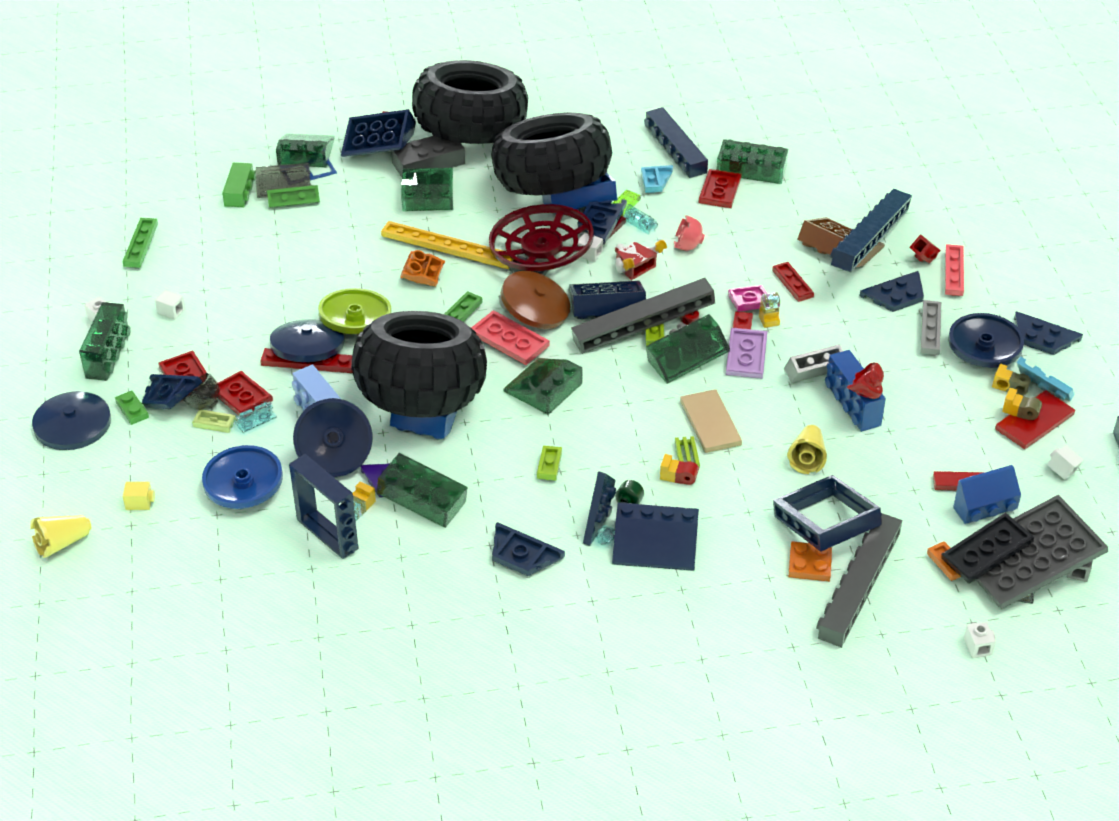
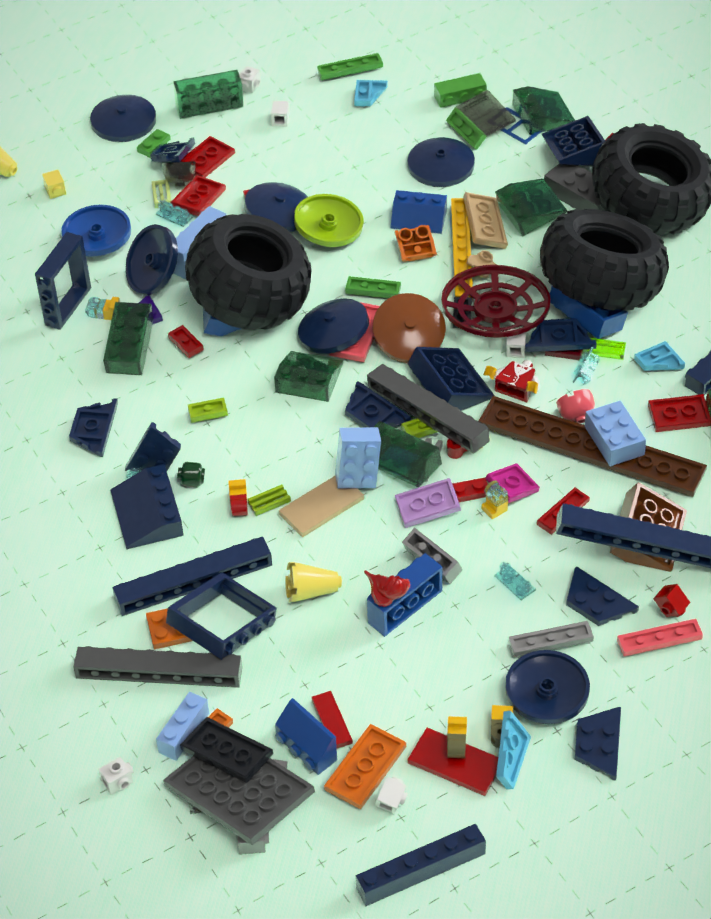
camera: 70 degrees right, 5 degrees up
(187, 241) = (368, 91): none -> medium azure wing
(321, 226) = (441, 162): none -> dark blue dish
(382, 255) = (417, 209): none -> blue slope
(424, 219) = (485, 220): none -> tan tile
(446, 454) = (185, 341): none -> red plate
(474, 237) = (482, 258): none -> tan plate
(507, 345) = (333, 326): none -> dark blue dish
(614, 355) = (369, 408): none -> dark blue wing
(691, 367) = (357, 457): none -> light blue brick
(731, 242) = (575, 441): none -> reddish brown plate
(737, 219) = (615, 433): none -> light blue brick
(759, 529) = (188, 576): none -> dark blue brick
(855, 329) = (514, 581): none -> clear light blue hinge
(940, 577) = (182, 724): none -> light blue brick
(1033, 477) = (365, 766): none -> orange plate

